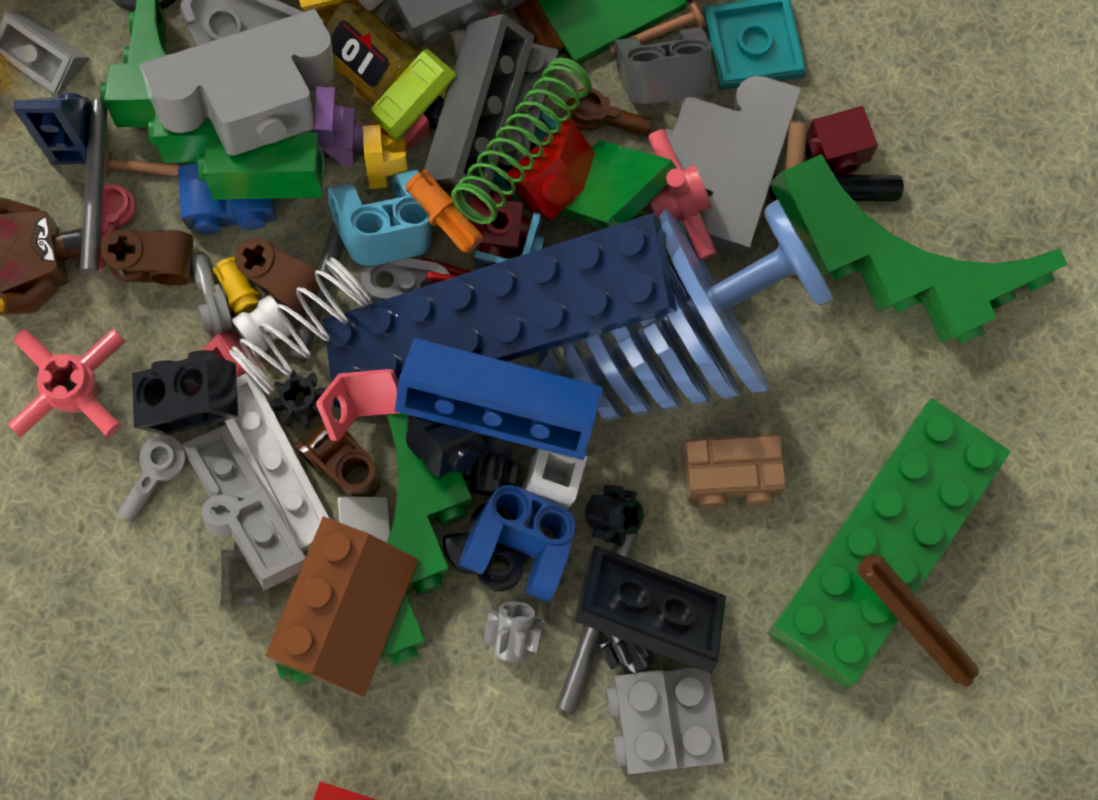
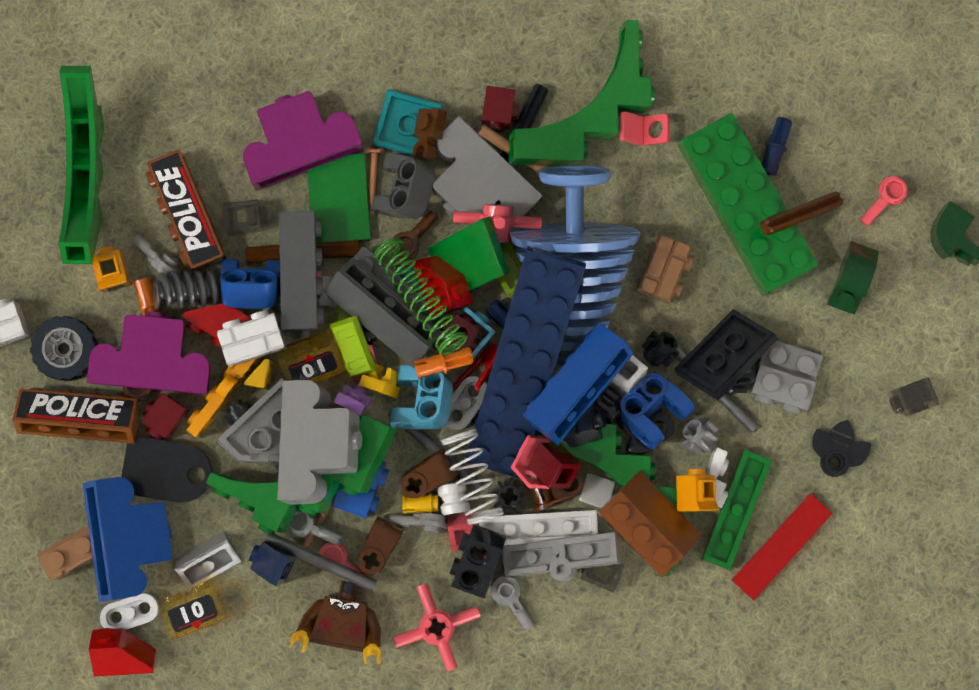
camera: 65 degrees left, 10 degrees up
(137, 149) = (305, 524): none -> light grey plate
(366, 429) = (554, 465): none -> dark red brick
(423, 657) = (696, 491): none -> light orange window
(428, 738) = (736, 510): none -> green plate
(444, 689) = (718, 466): none -> white slope
(764, 59) = (427, 130): none -> reddish brown plate
(863, 751) = (854, 277): none -> dark green brick
(914, 341) = (636, 129): none -> coral bracket
(996, 547) = (776, 145): none -> dark blue axle
(1022, 752) = (892, 192): none -> coral plate

